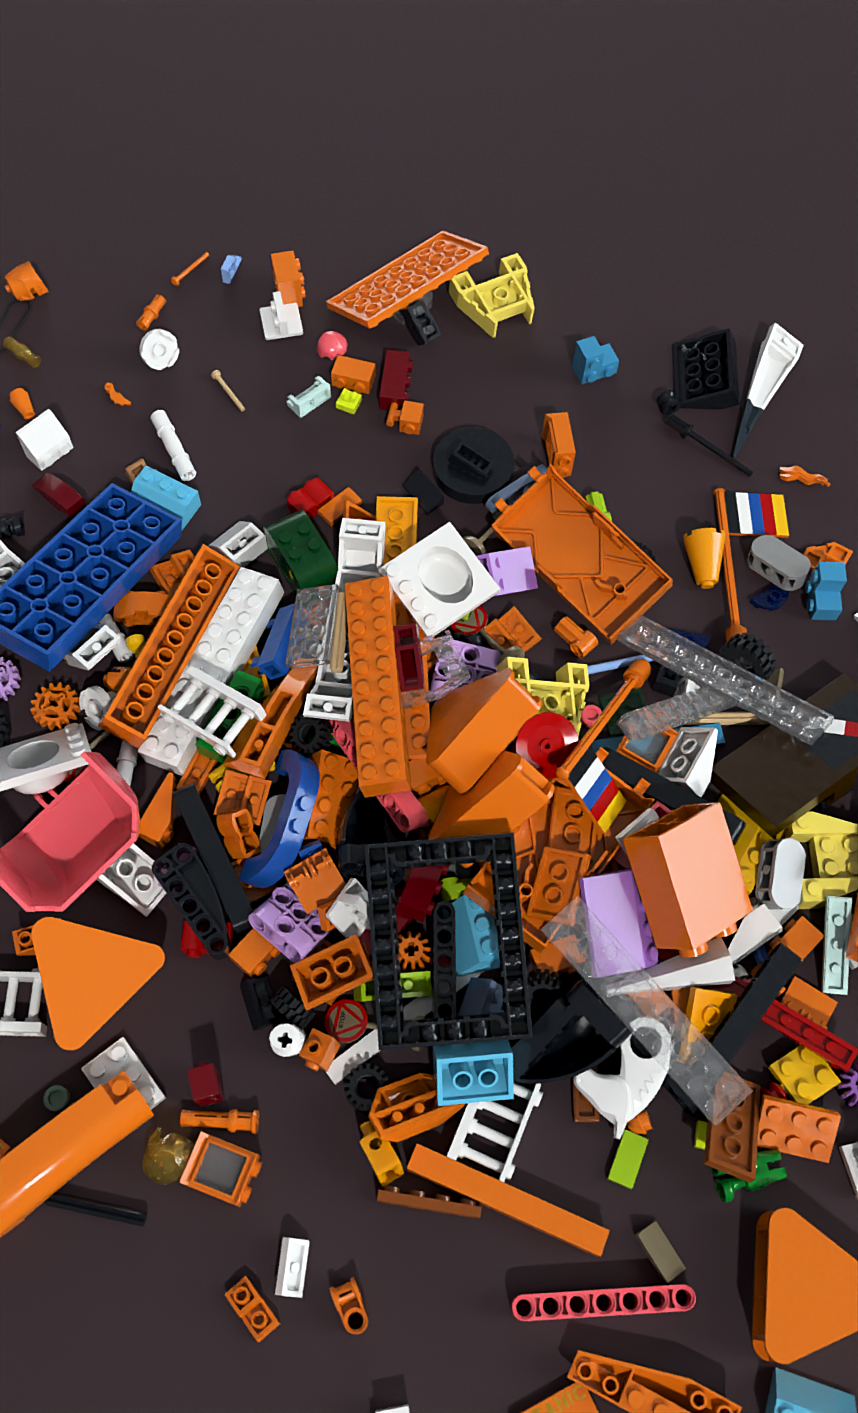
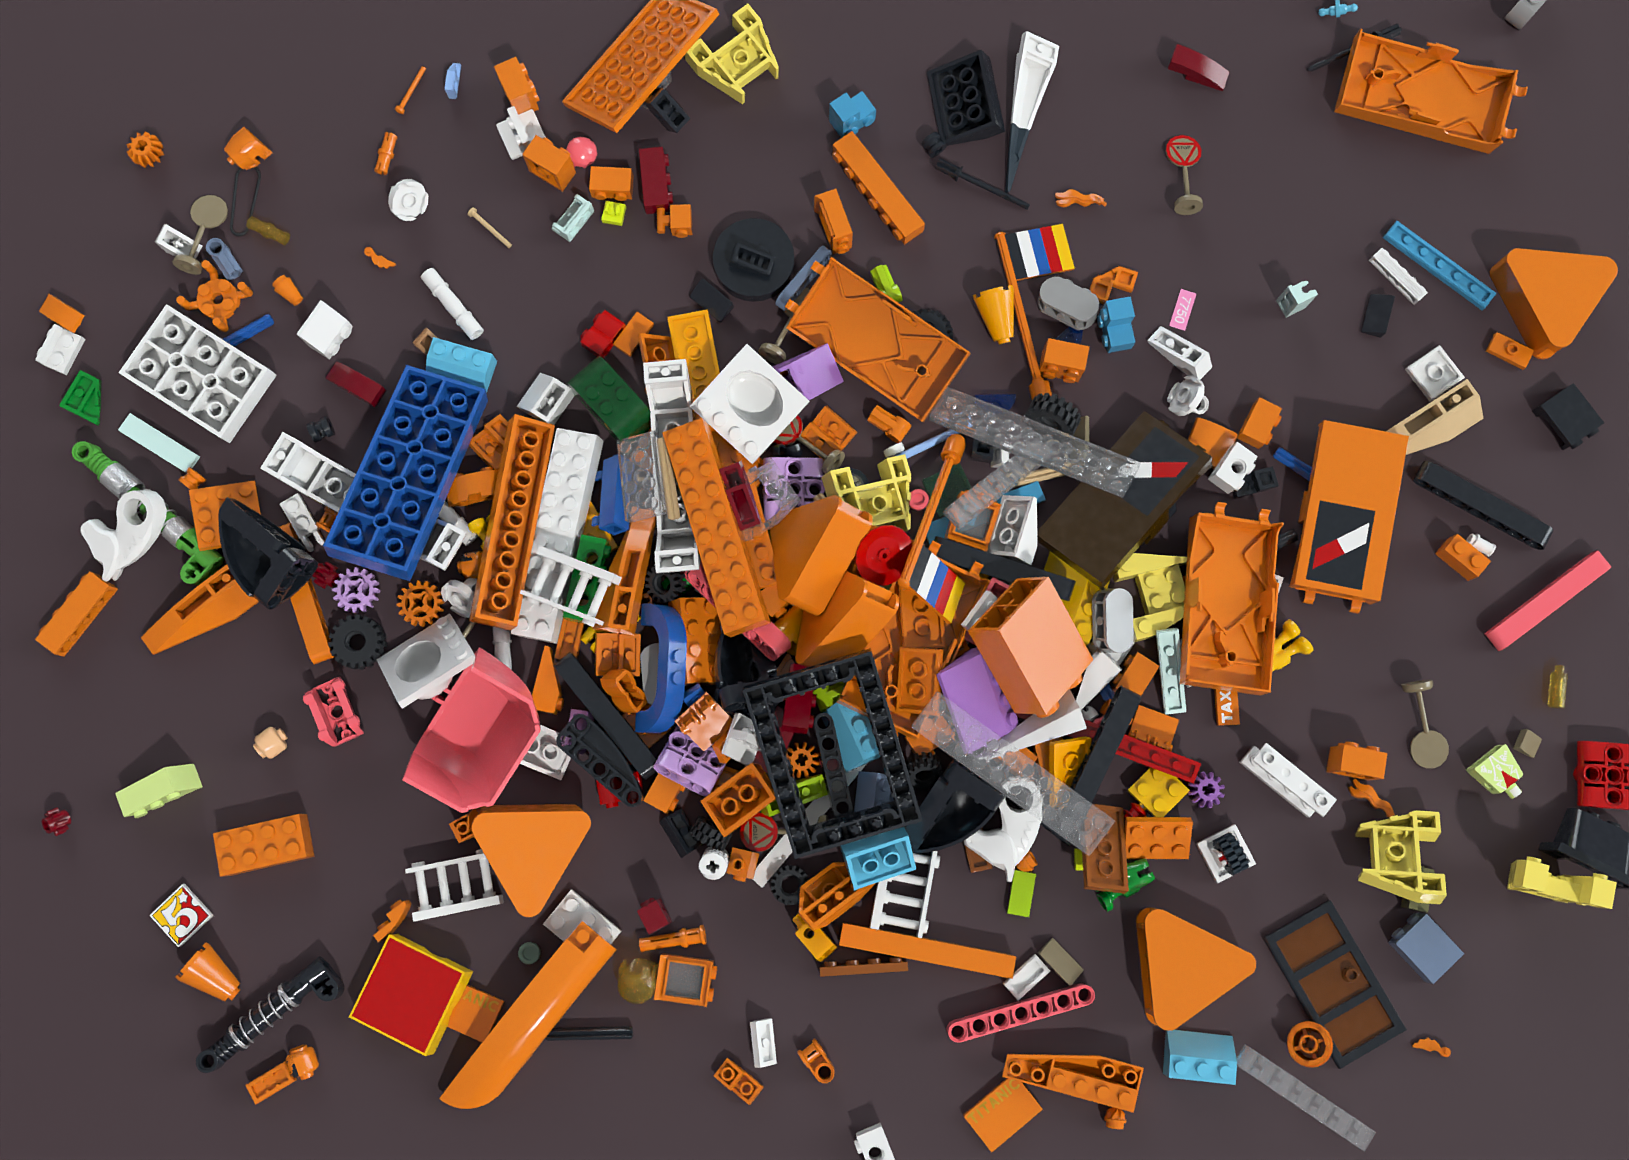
camera: 10 degrees left, 15 degrees up
(299, 344) = (549, 162): none -> orange brick
(580, 659) = (894, 450): none -> white tile
(607, 428) = (878, 188): none -> orange brick
(616, 1261) = (1026, 977): none -> white tile
(766, 611) = (1063, 360): none -> orange brick

